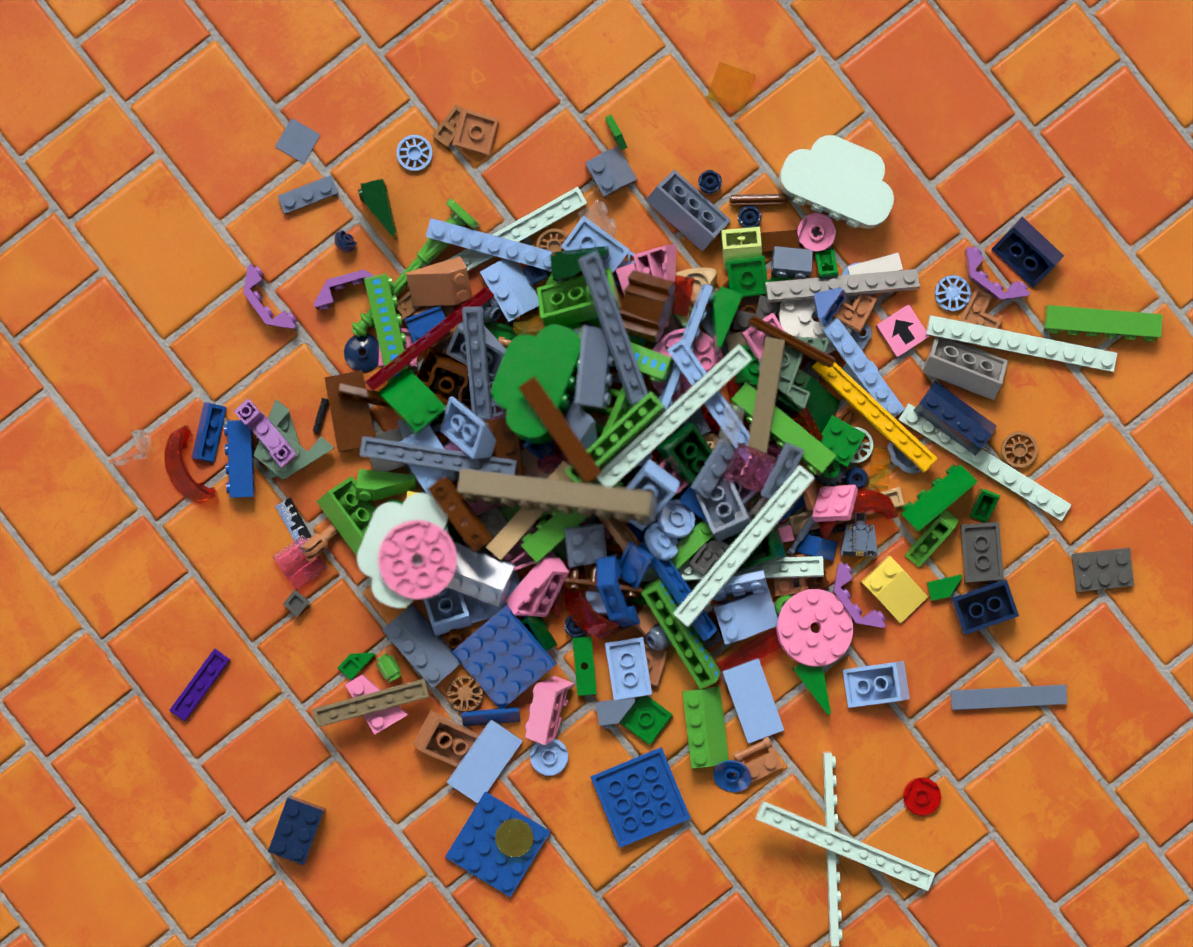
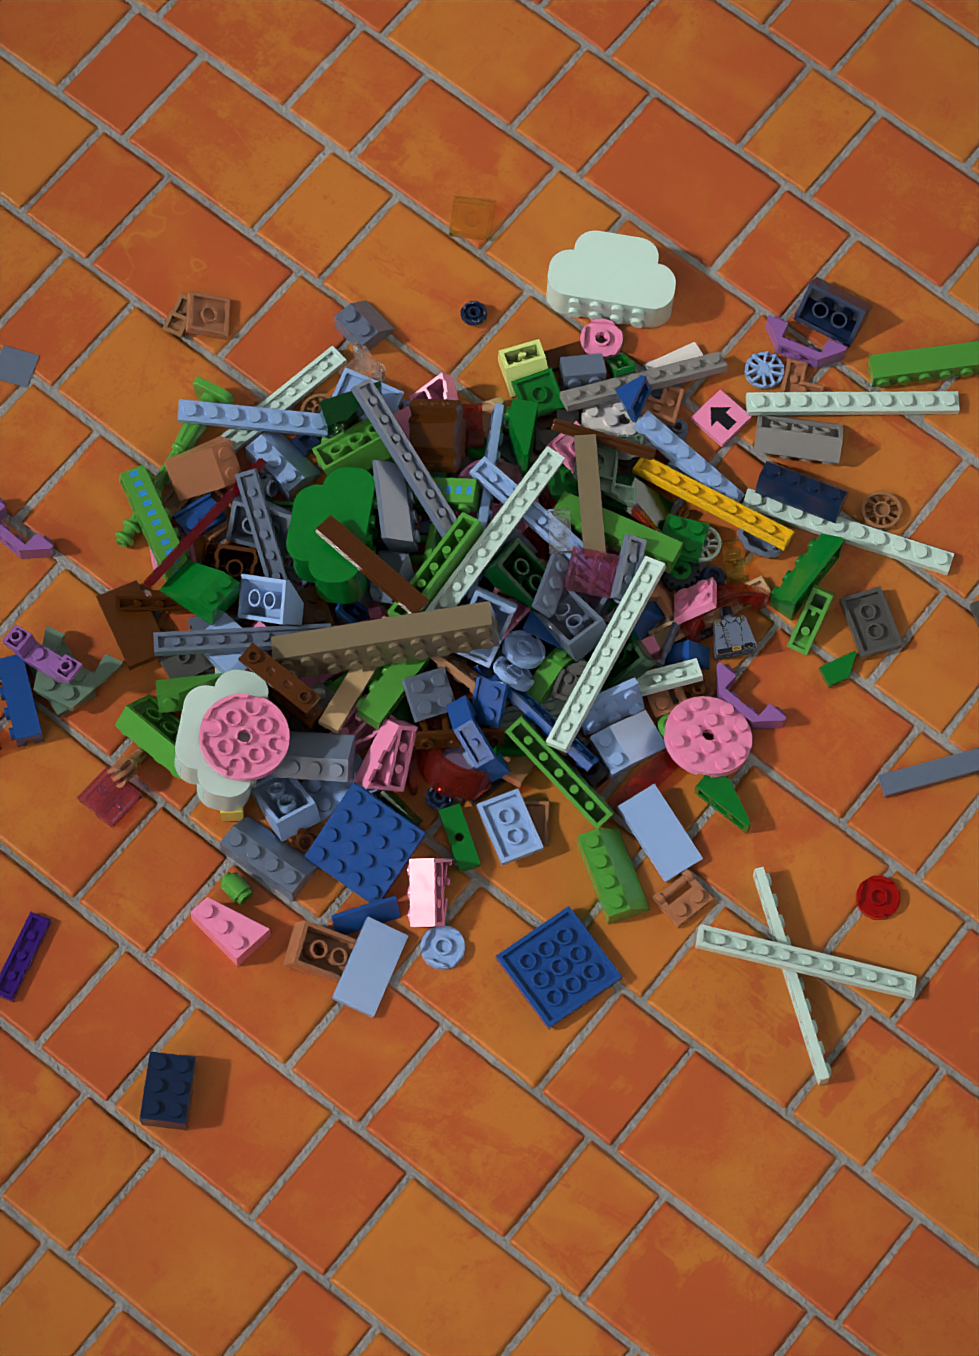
camera: 20 degrees left, 20 degrees down
(292, 519) = (90, 754): sticker -> none
(296, 602) = (114, 841): dark grey plate -> none
(307, 194) = (38, 416): sand blue plate -> none
(320, 415) = (100, 638): black wheel -> none
(325, 296) = (79, 514): medium lavender slope -> none
(344, 241) = (89, 453): dark blue plate -> none
(355, 360) = (130, 572): dark blue dish -> none
(355, 663) = (196, 893): green tile -> none
(370, 703) = (223, 922): dark tan tile -> none
(376, 198) = (118, 405): dark green slope -> none
(414, 152) = (146, 351): light blue wheel -> none
(464, 693) = (329, 898): medium nougat wheel -> none
(477, 848) = (406, 1057): blue plate -> none
(514, 837) = (424, 1041): clear yellow tile -> none
(612, 711) = (503, 878): sand blue slope -> none
(616, 132) = (362, 285): green tile -> none
(646, 718) = (543, 881): green tile -> none
(657, 638) = (537, 786): sand blue head -> none
(688, 210) = (456, 345): sand blue slope -> none
(732, 776) = (657, 929): blue dish -> none
(749, 211) = (524, 333): dark blue plate -> none
(757, 199) = (530, 321): reddish brown axle -> none
(876, 684) = (793, 785): light blue slope -> none
(894, 589) = (784, 681): light yellow slope -> none
(984, 505) = (859, 571): green slope -> none
(984, 606) = (889, 675): dark blue brick -> none

